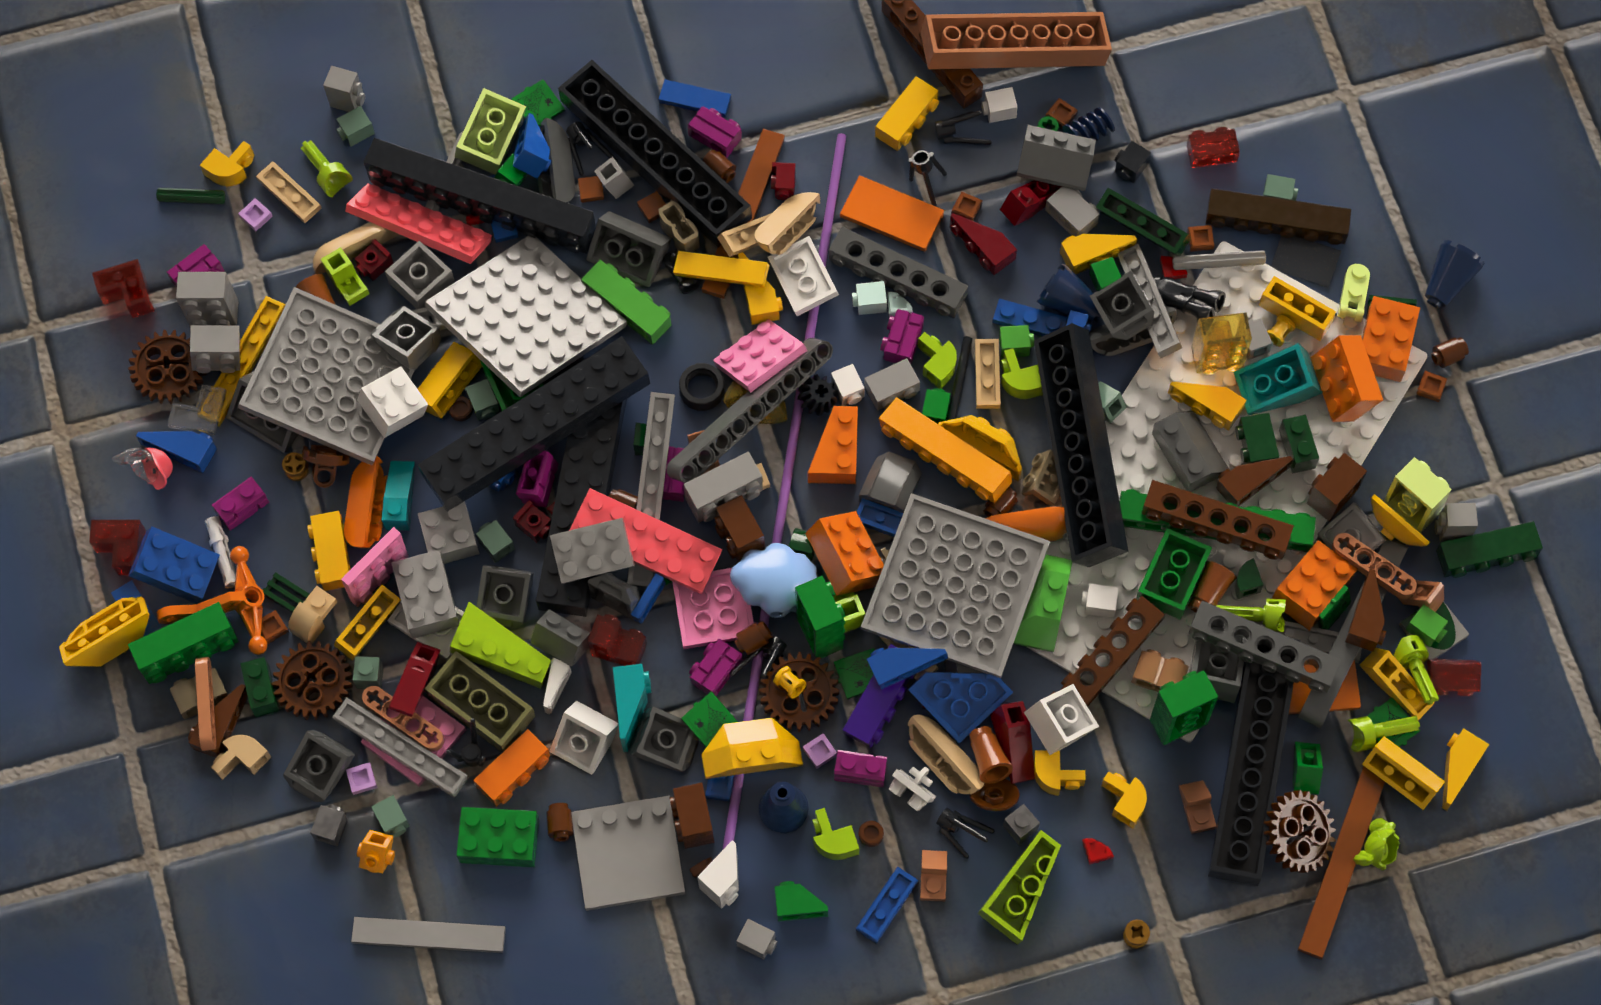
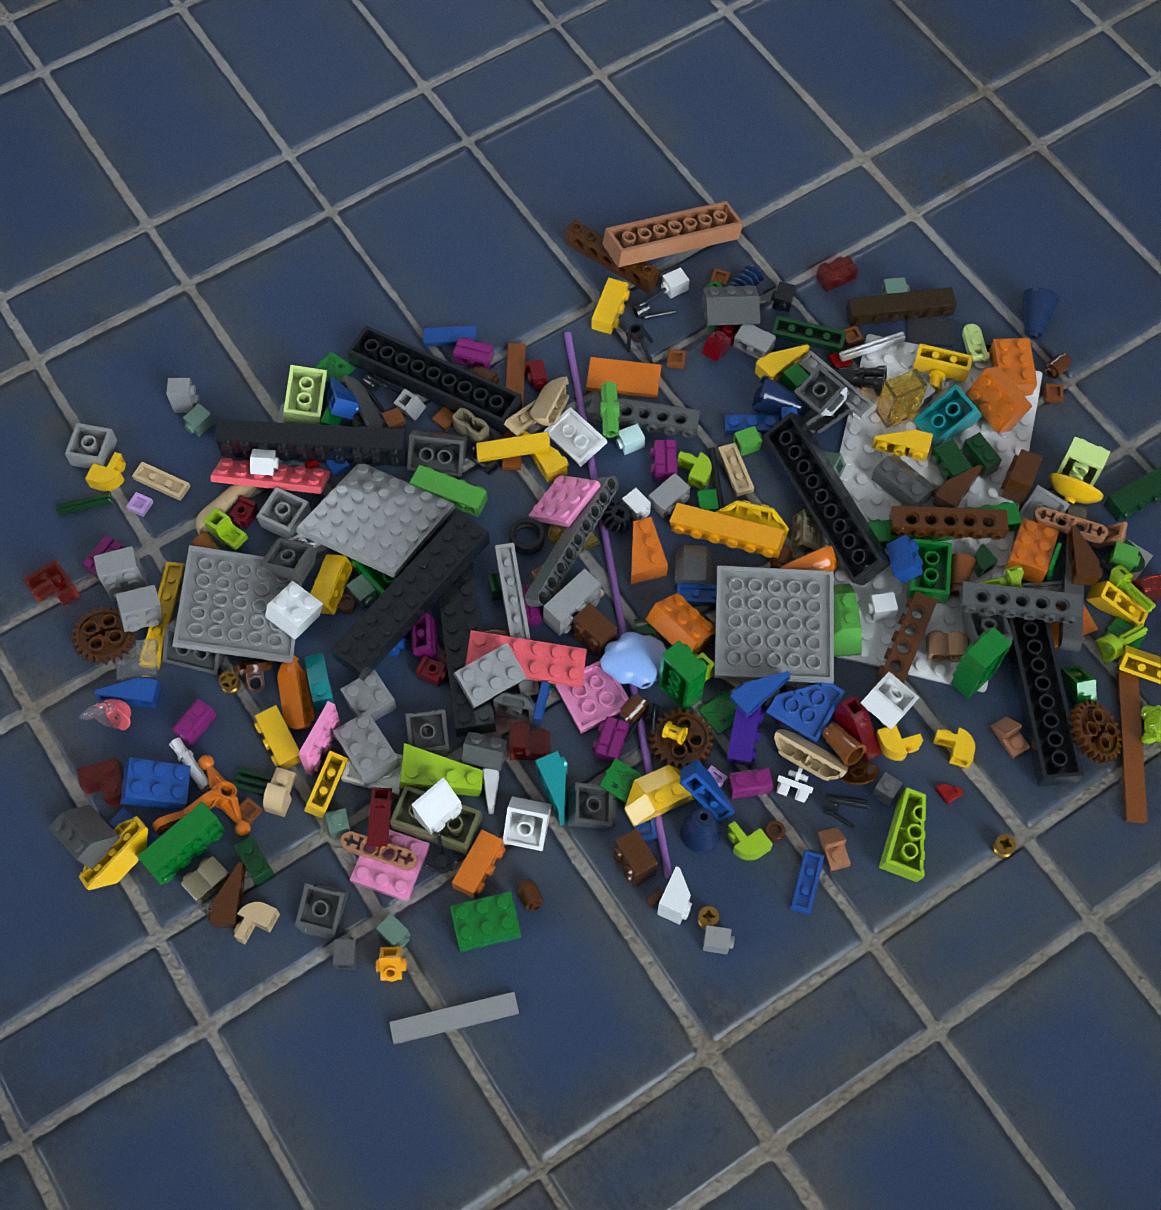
camera: 20 degrees left, 5 degrees down
(78, 600) = (84, 834): none -> dark grey slope
(205, 703) = (215, 886): nougat beam -> none
(218, 125) = (90, 445): none -> light grey brick
(295, 667) = (277, 837): reddish brown gear -> none
(331, 175) = (191, 460): lime piece -> none
(361, 778) = (359, 908): lavender plate -> none
(400, 747) = (384, 874): light grey tile -> none
(413, 205) = (263, 462): none -> white brick
(480, 688) = (437, 807): none -> white slope
(495, 540) = (406, 693): sand green brick -> none
(627, 853) = (592, 903): light grey plate -> none
(755, 914) = (705, 919): none -> pearl gold wheel
(797, 903) = (739, 901): green slope -> none
(803, 761) = (705, 790): none -> blue slope
(854, 254) = (609, 409): none -> bright green piece
(897, 302) = (650, 438): light aqua tile -> none
(988, 244) = (701, 379): dark red slope -> none
(1019, 382) = (762, 468): lime brick -> none
(1143, 550) = (904, 558): none -> blue brick
(1456, 521) = (1114, 477): light grey brick -> none

